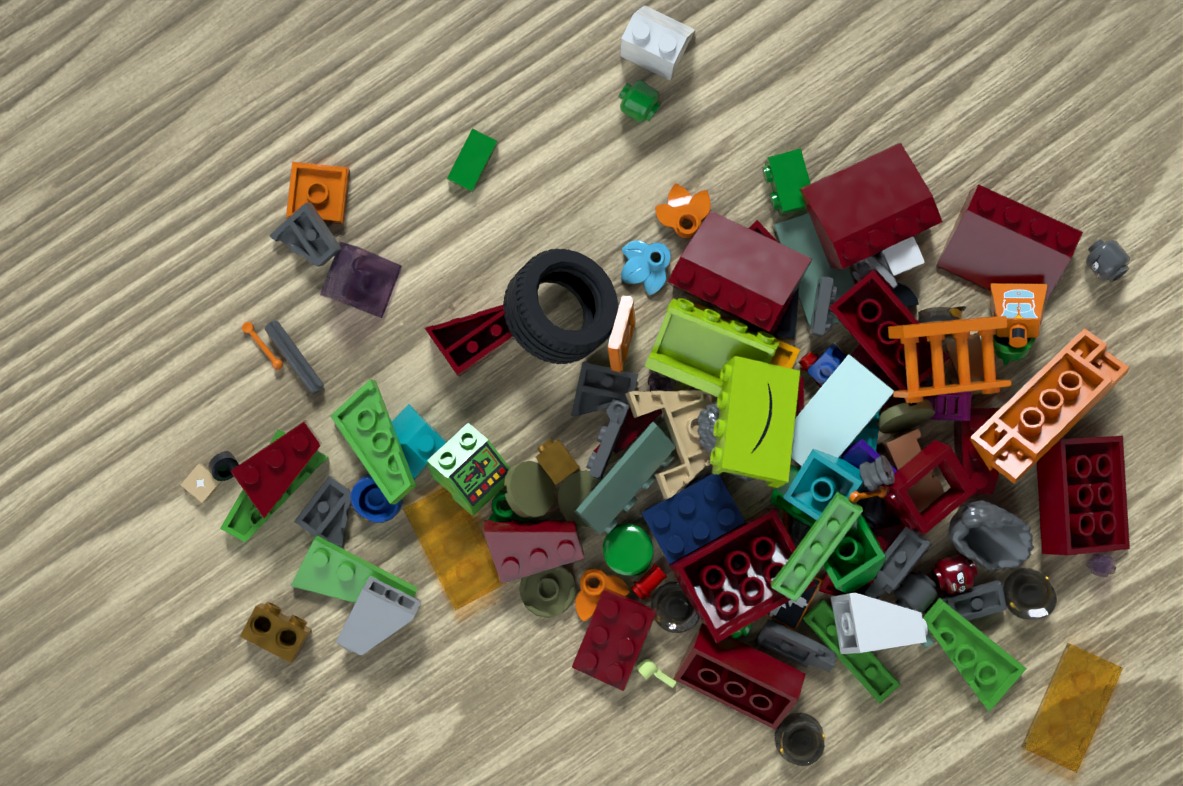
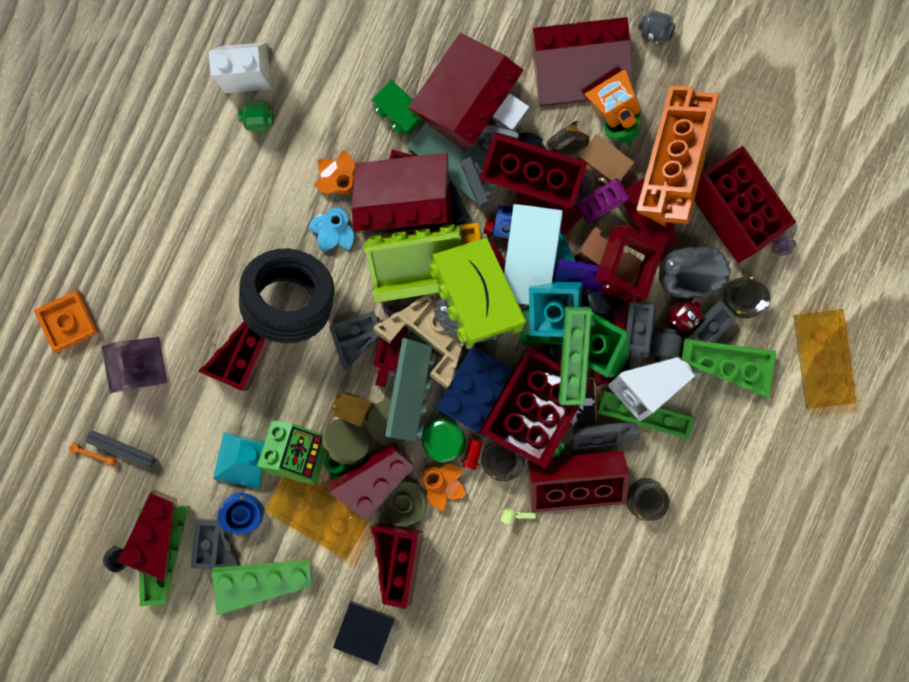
camera: 35 degrees left, 0 degrees up
(200, 483) = (107, 581): tan tile -> none
(273, 640) = (228, 661): pearl gold brick -> none
(308, 236) = (75, 356): dark grey wing -> none
(374, 440) = (211, 473): bright green wing -> none
(376, 616) = (289, 599): light grey slope -> none
(428, 695) = (364, 632): none -> black tile
(472, 160) = (163, 230): green tile -> none
(508, 643) = (398, 562): none -> dark red wedge
(607, 437) = (380, 370): dark grey hinge -> none
(614, 639) = (472, 510): dark red plate -> none
(621, 334) = (343, 289): orange tile -> none
(855, 496) = (597, 288): orange hinge -> none
(877, 473) = (585, 276): dark grey wheel -> none
(905, 416) = (581, 224): olive tile -> none
(935, 334) = (566, 150): orange fence -> none

